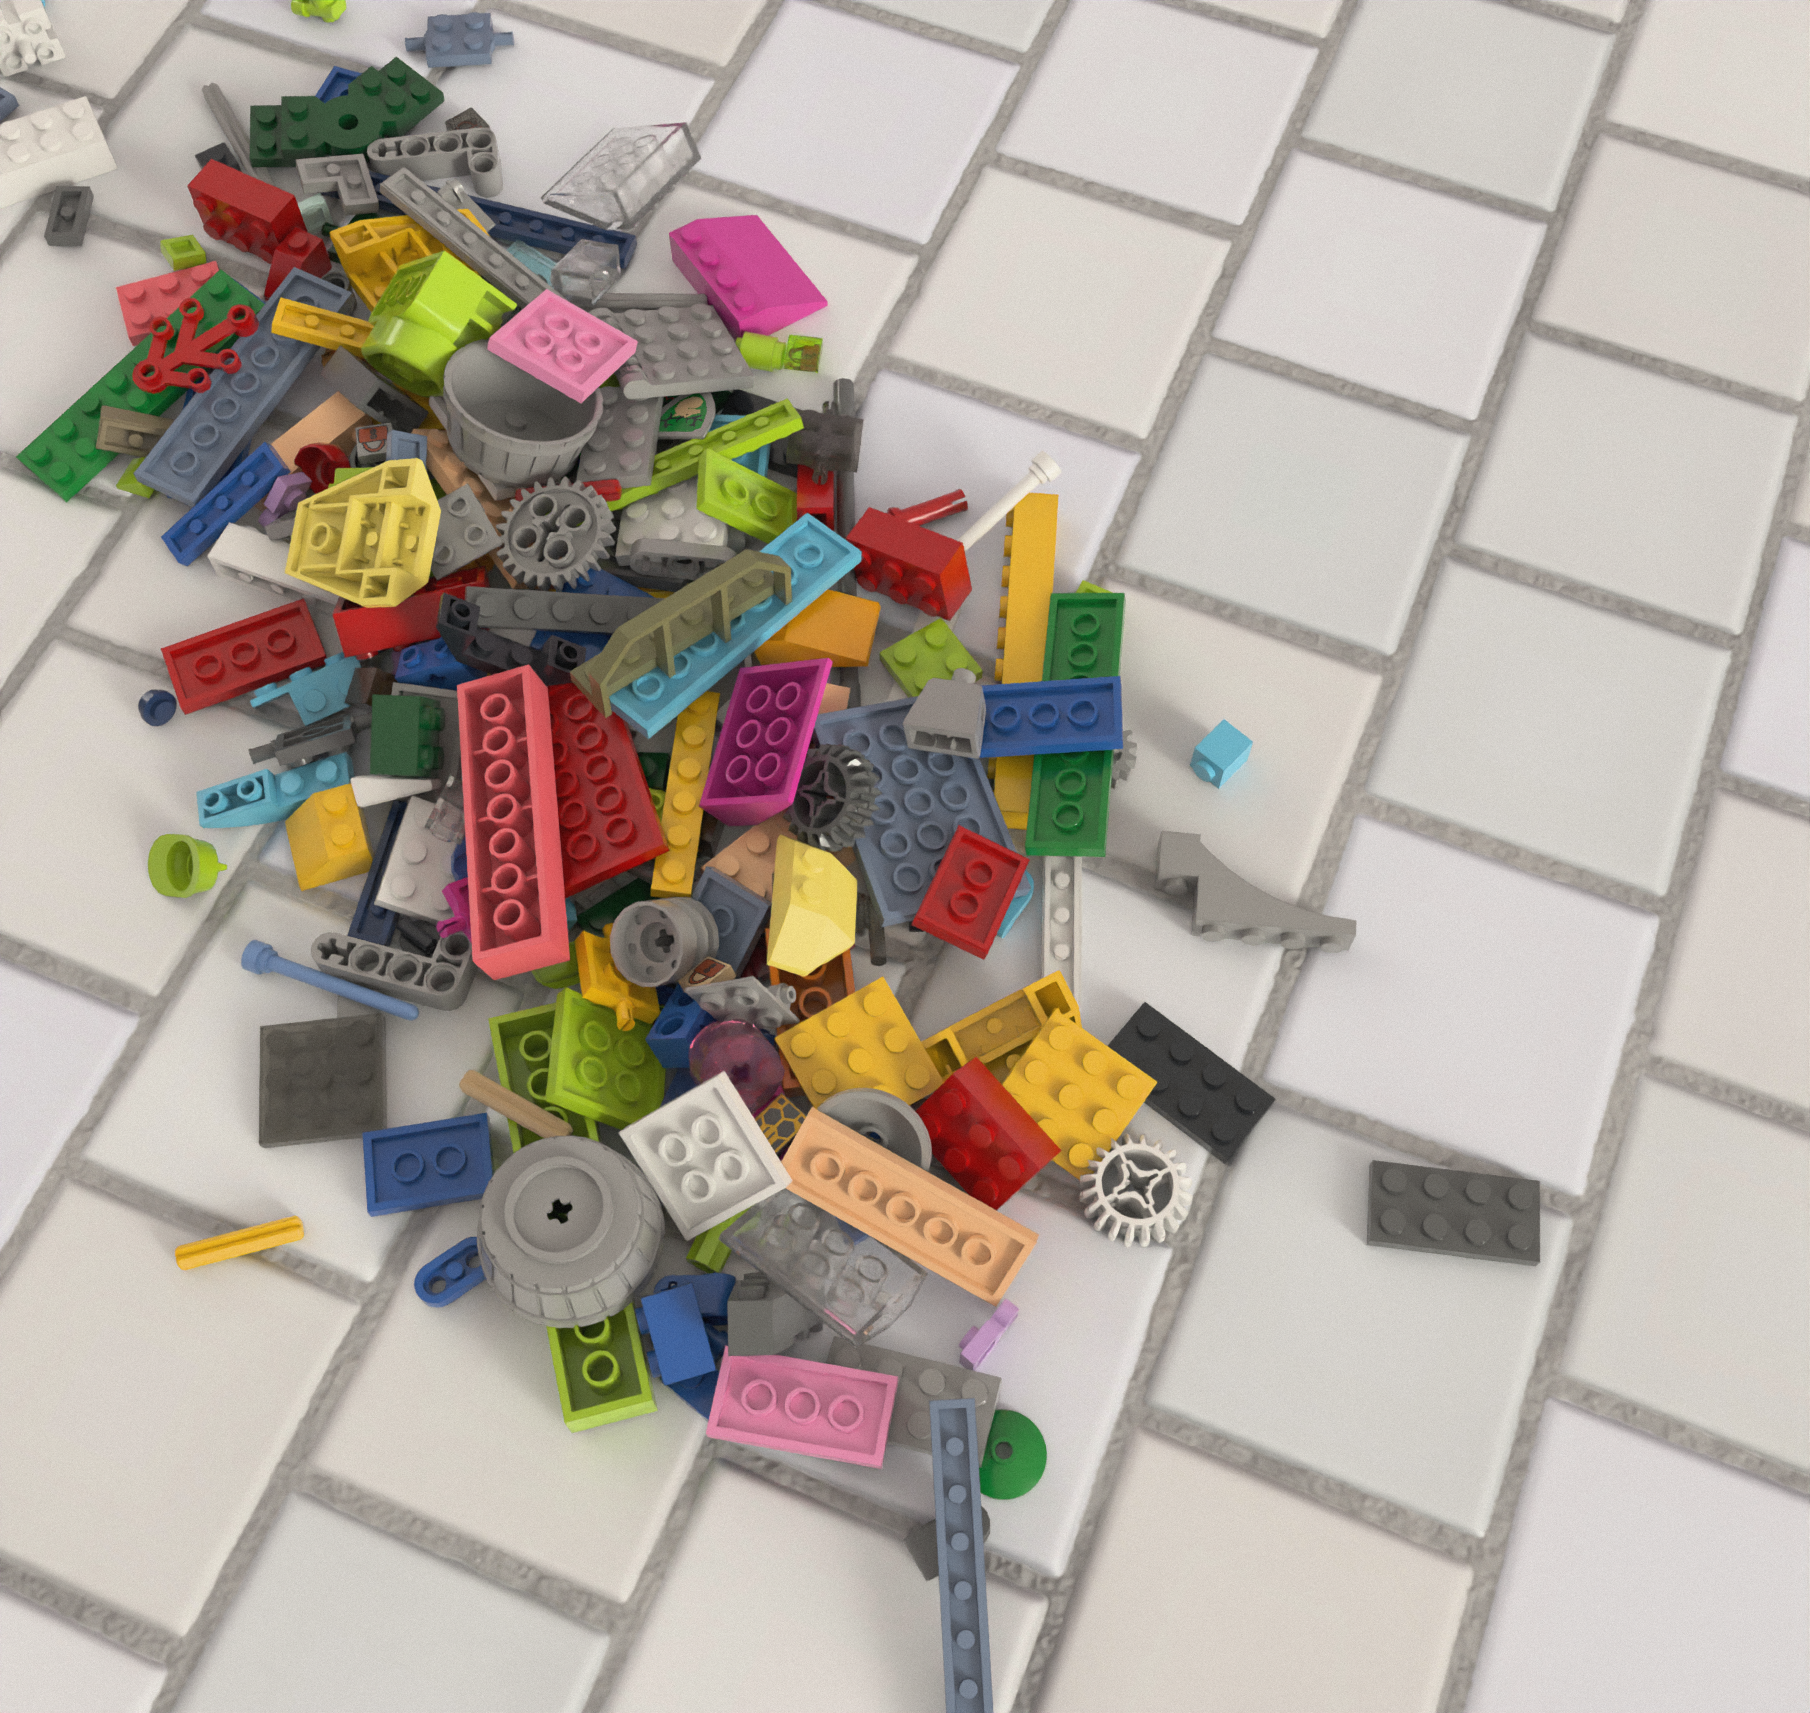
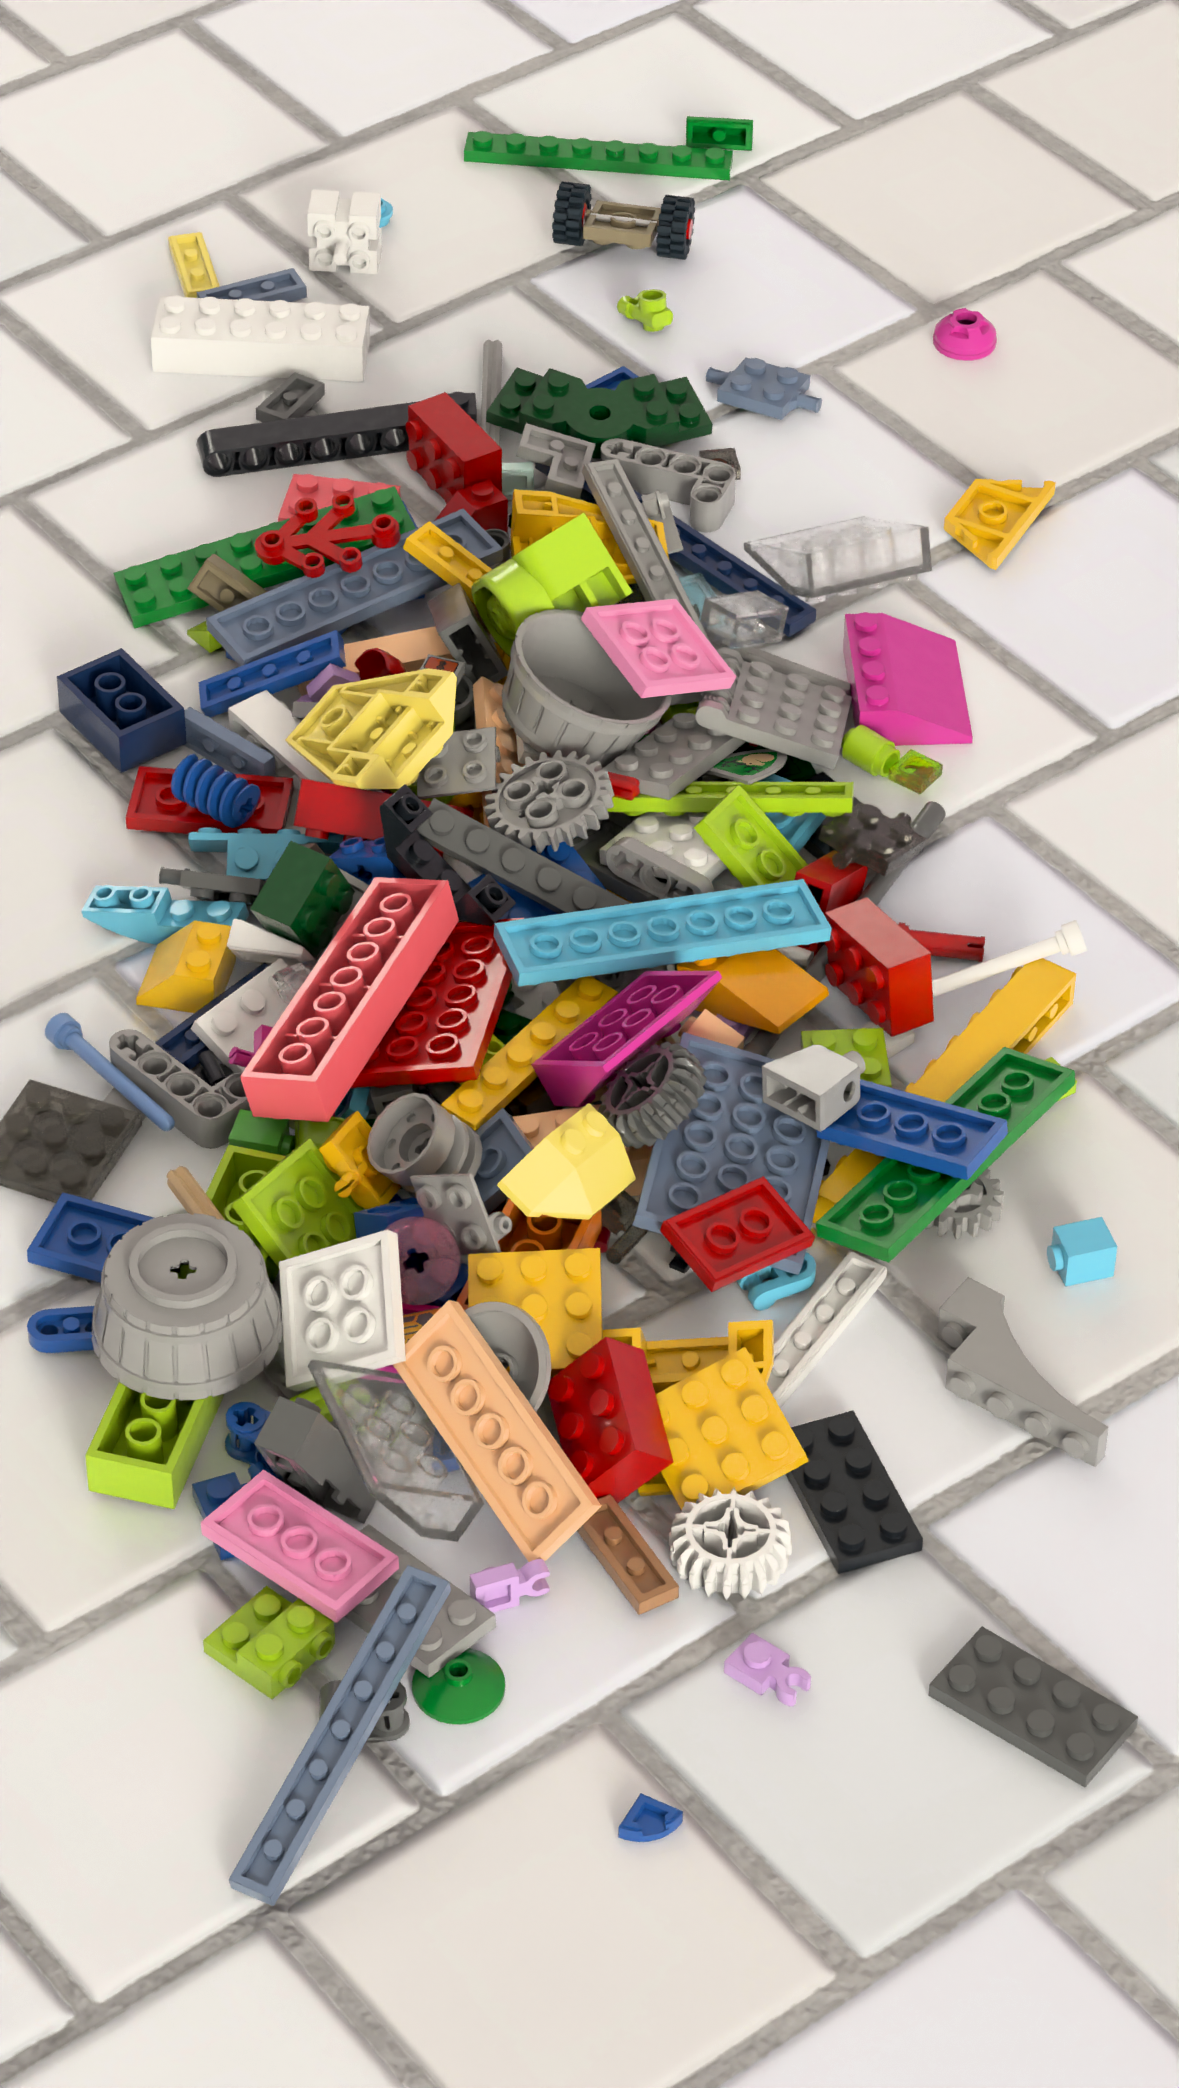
camera: 30 degrees right, 20 degrees down
(107, 248) = (304, 440): none -> black beam
(111, 599) = (121, 710): none -> dark blue brick
(157, 707) = (106, 811): dark blue plate -> none
(183, 252) = (374, 467): lime plate -> none
(183, 865) = (47, 935): lime piece -> none
(224, 592) = (225, 746): none -> sand blue plate
(248, 652) = (215, 791): none -> blue piece
(406, 446) = (468, 688): sand blue plate -> none
(504, 994) = (262, 1134): none -> bright green brick
(676, 1334) = (226, 1436): blue brick -> none
(680, 622) = (609, 911): olive plate -> none
(717, 86) = (995, 516): none -> yellow wing
(825, 1506) = (271, 1641): none -> lime plate
(1067, 1250) = (628, 1557): none -> medium nougat plate
(1228, 1296) = (763, 1666): none -> lavender plate
(1239, 1504) = (649, 1820): none -> blue tile

